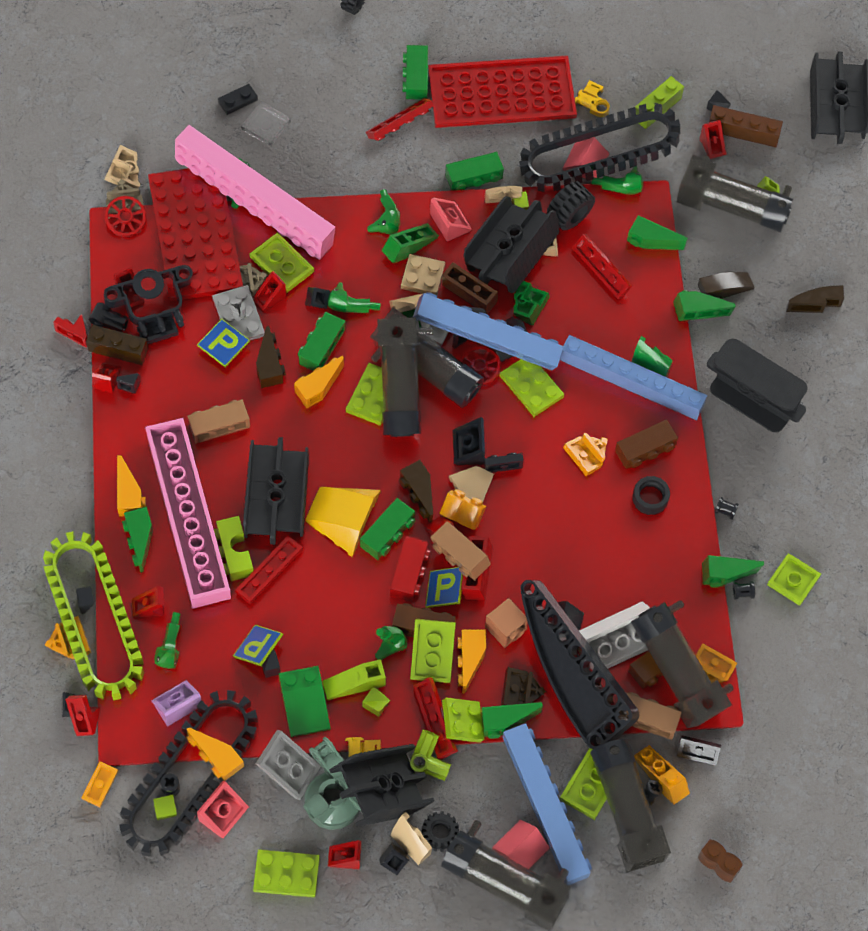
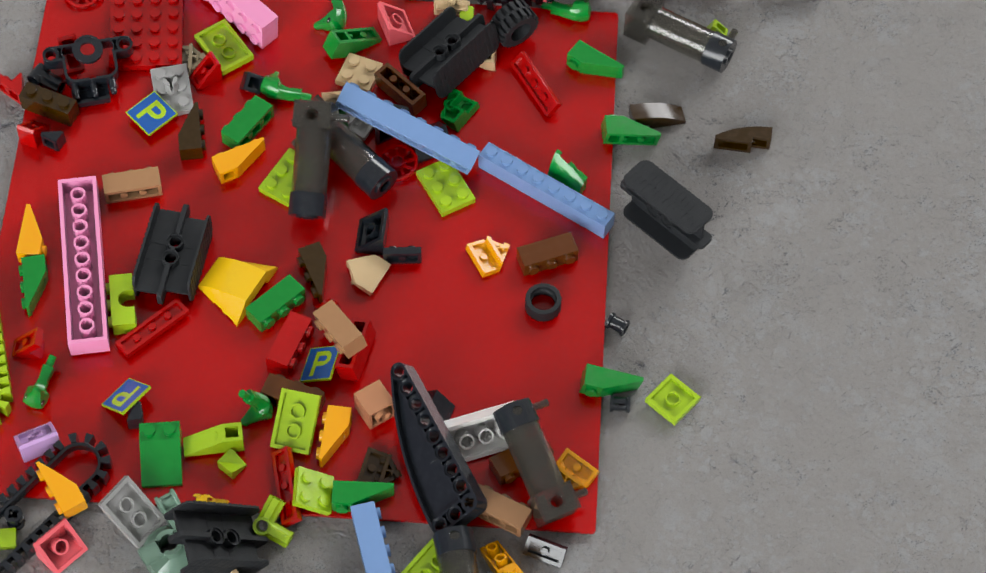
camera: 10 degrees right, 5 degrees down
(462, 509) = (353, 293): light orange brick -> none

